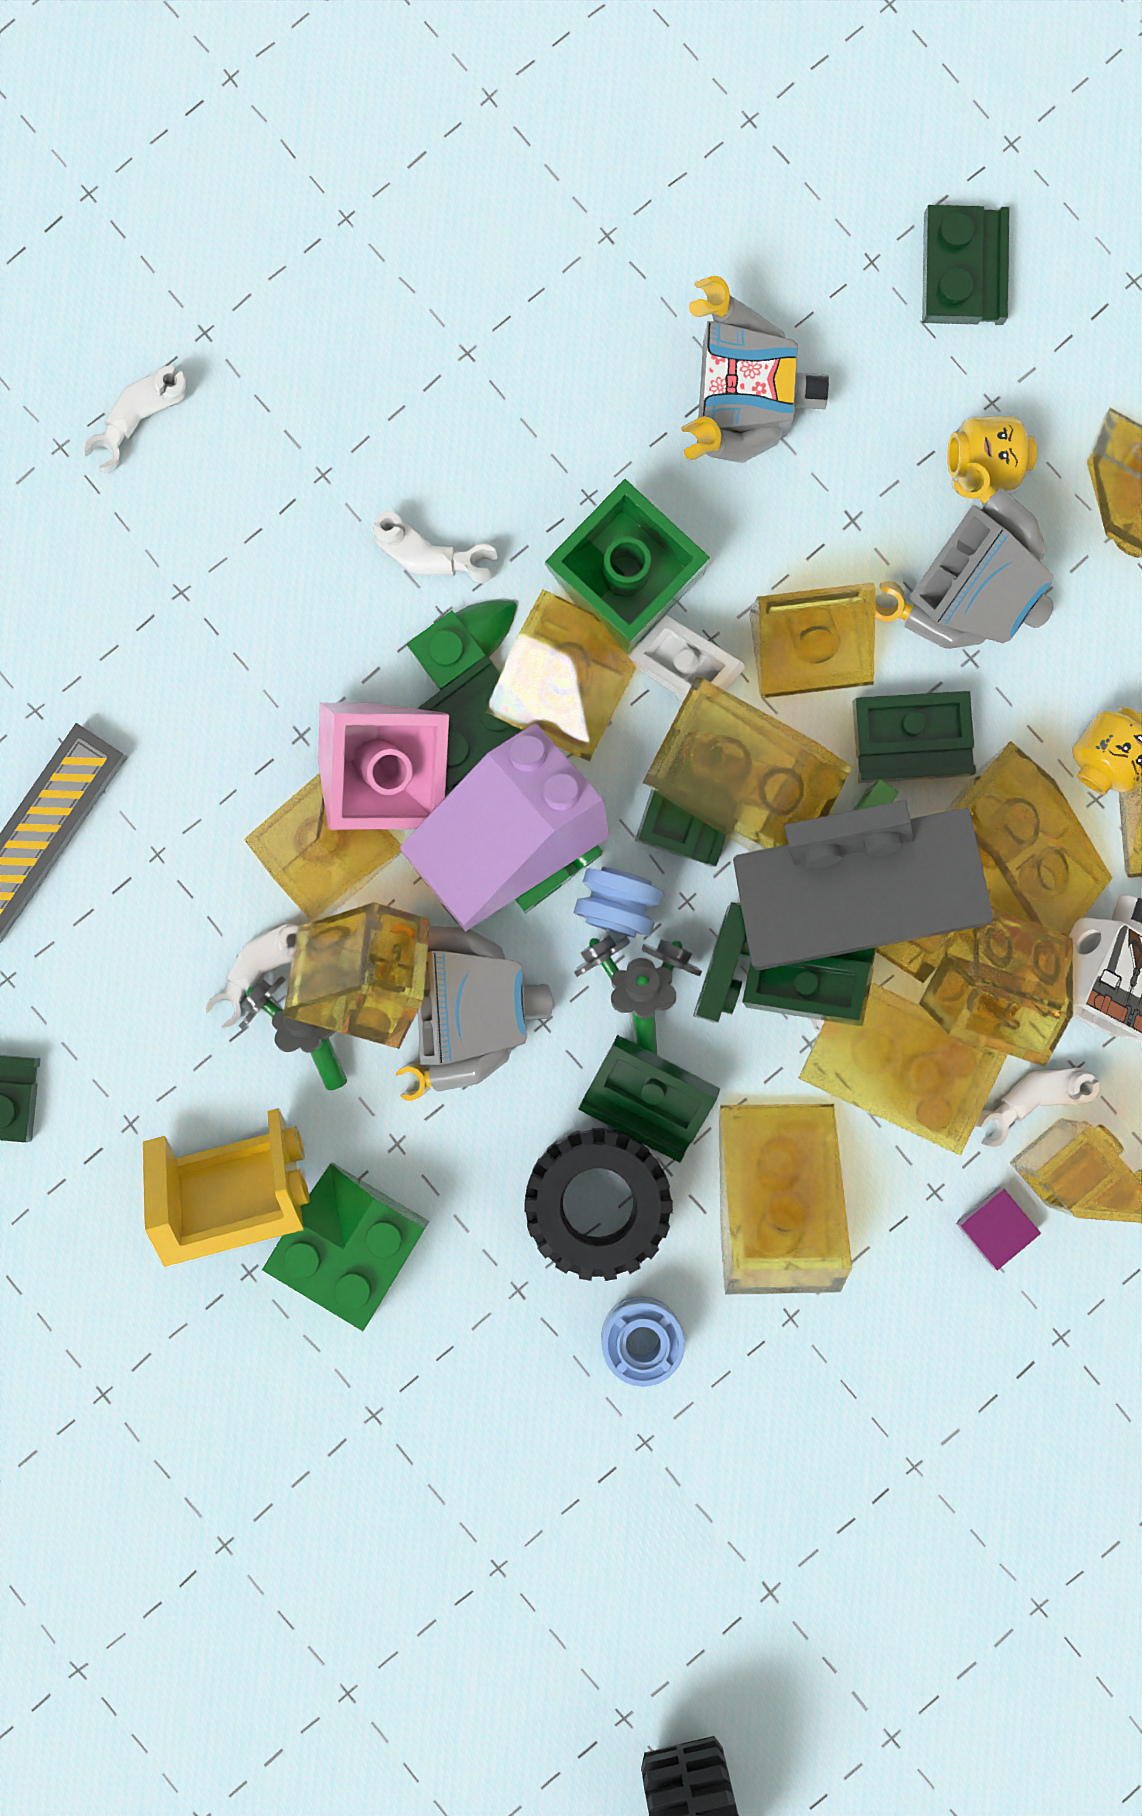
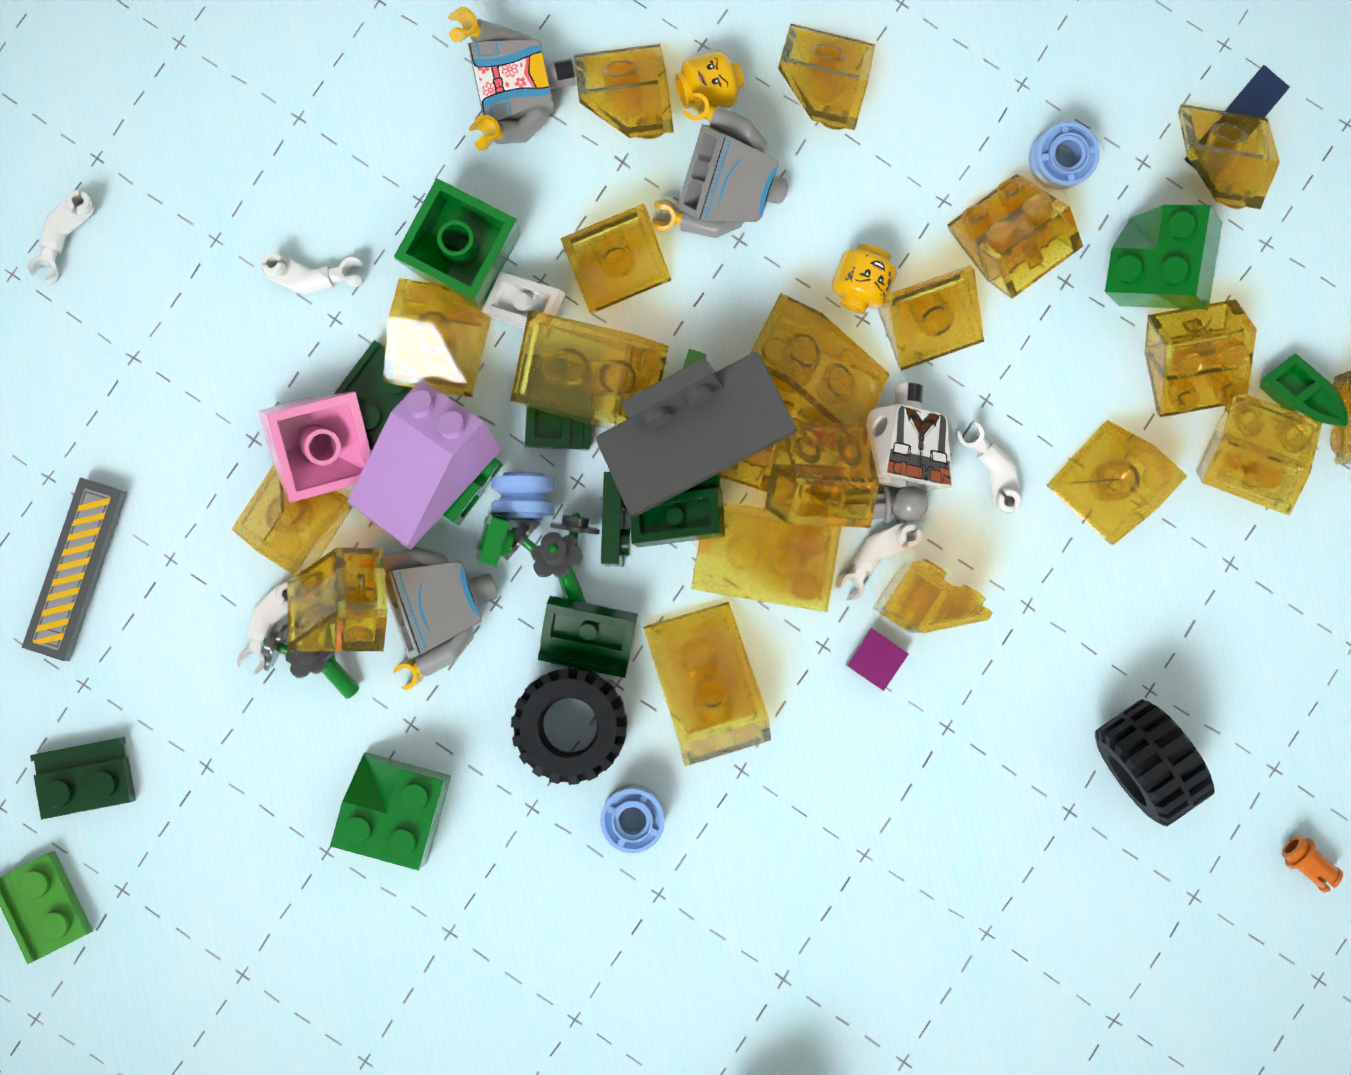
camera: 10 degrees left, 0 degrees up
(223, 1193) = (286, 798): yellow panel -> none
(462, 639) = (354, 332): green plate -> none
(569, 947) = (494, 540): none -> green plate
(888, 433) = (627, 89): none -> clear yellow slope
(914, 736) = (711, 310): dark green plate -> none
(1091, 1046) = (908, 504): none -> light grey axle

